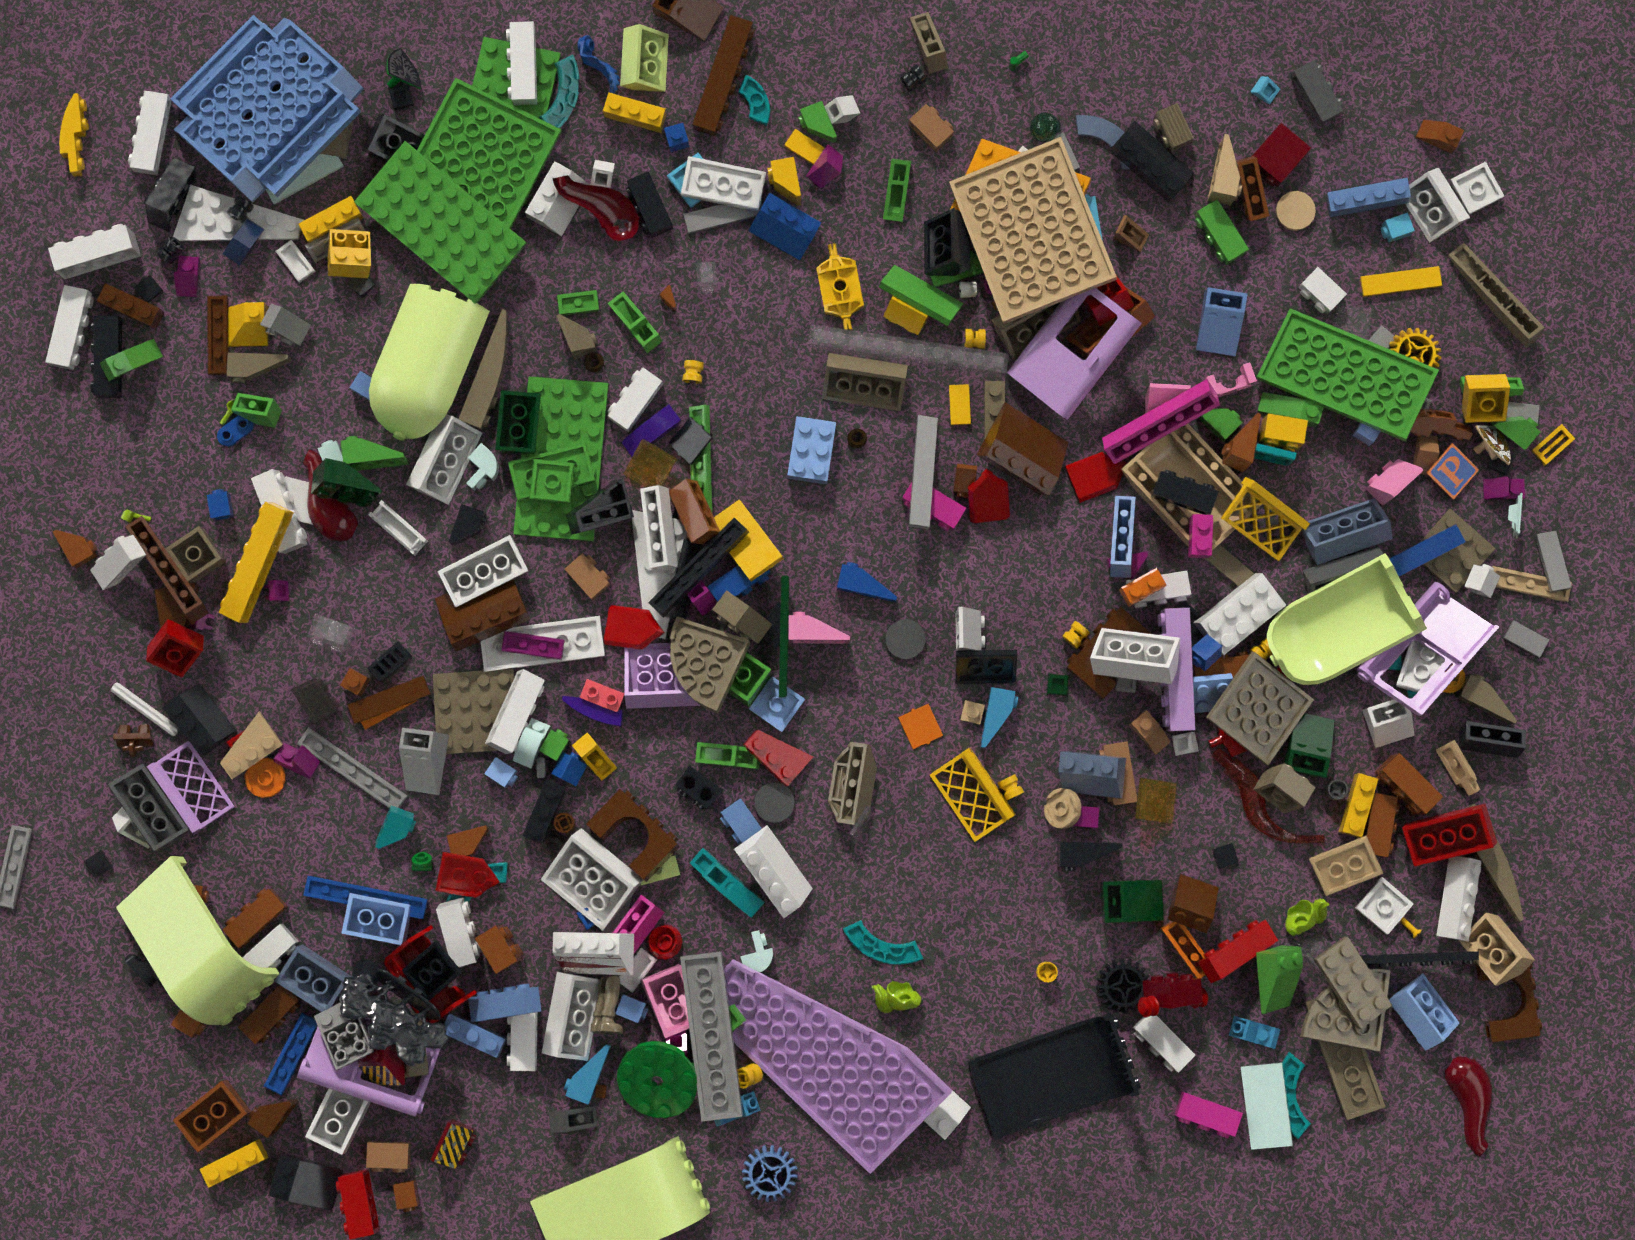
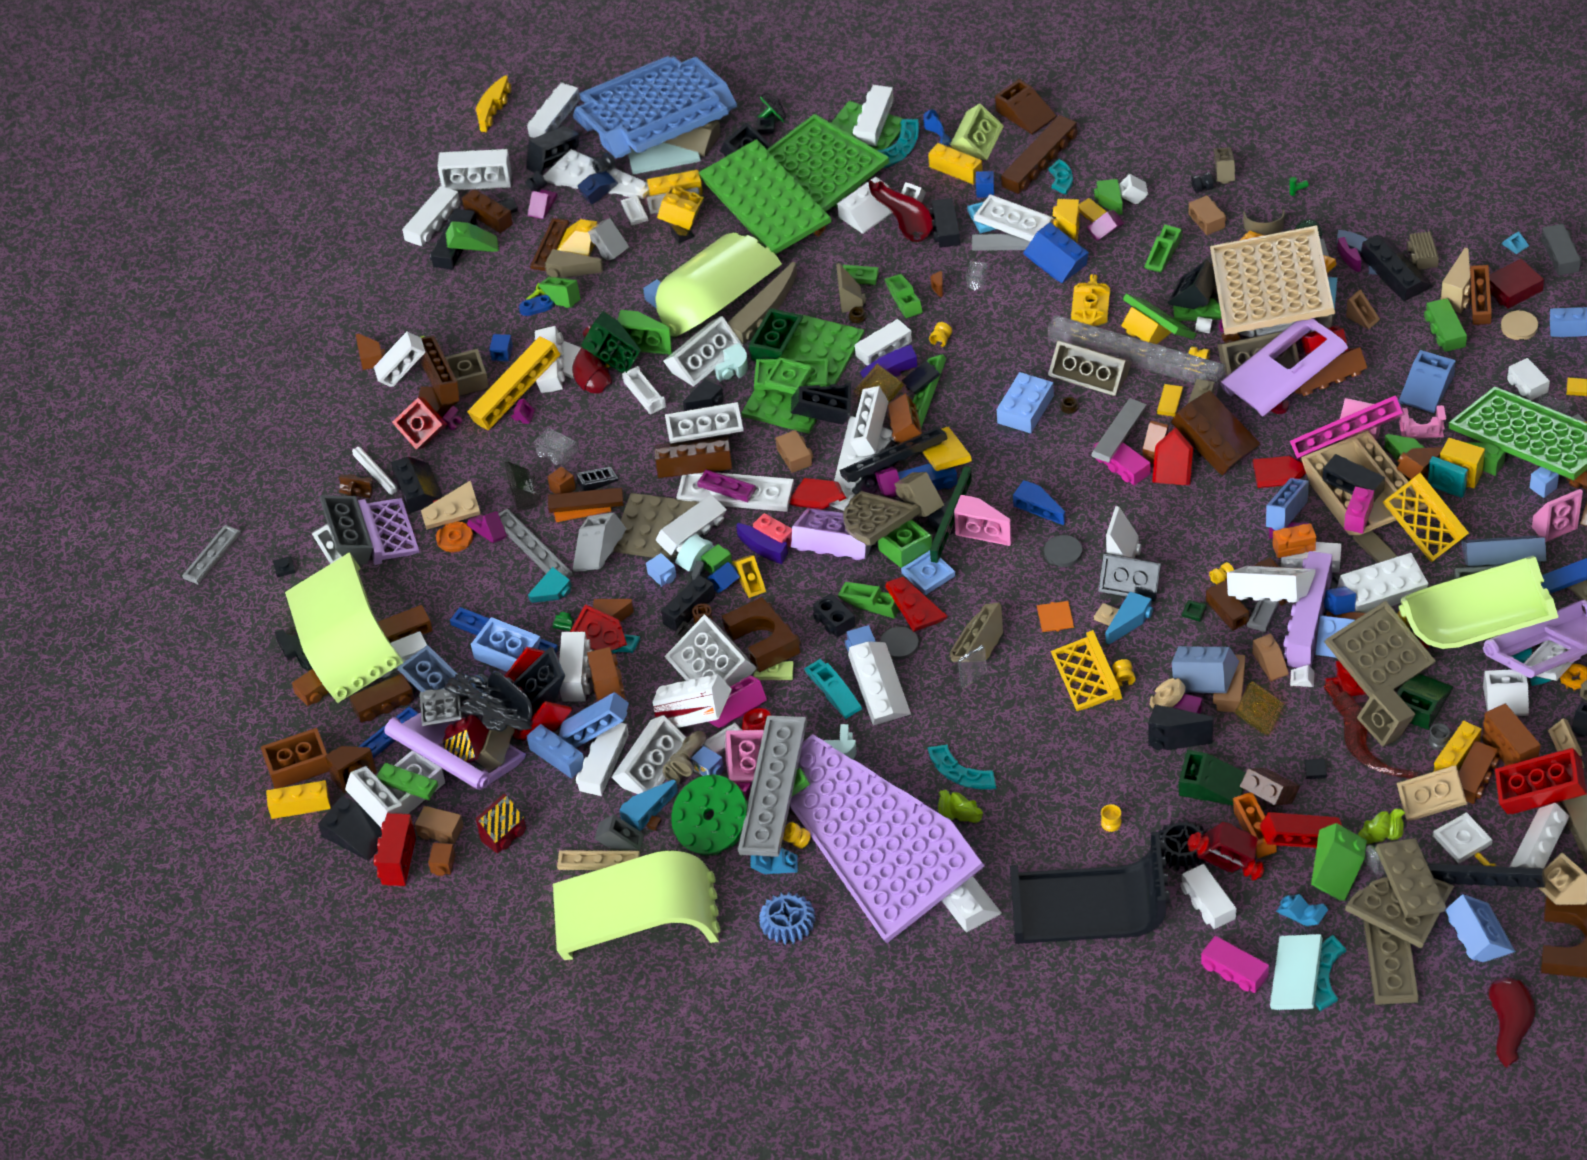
camera: 25 degrees right, 35 degrees down
(314, 1154) = (372, 795): none -> white brick
(341, 1126) = (407, 781): none -> bright green plate
(561, 1150) = (593, 859): none -> tan tile
(993, 138) = (1264, 228): none -> dark tan piece
(1100, 156) = (1350, 256): none -> magenta slope

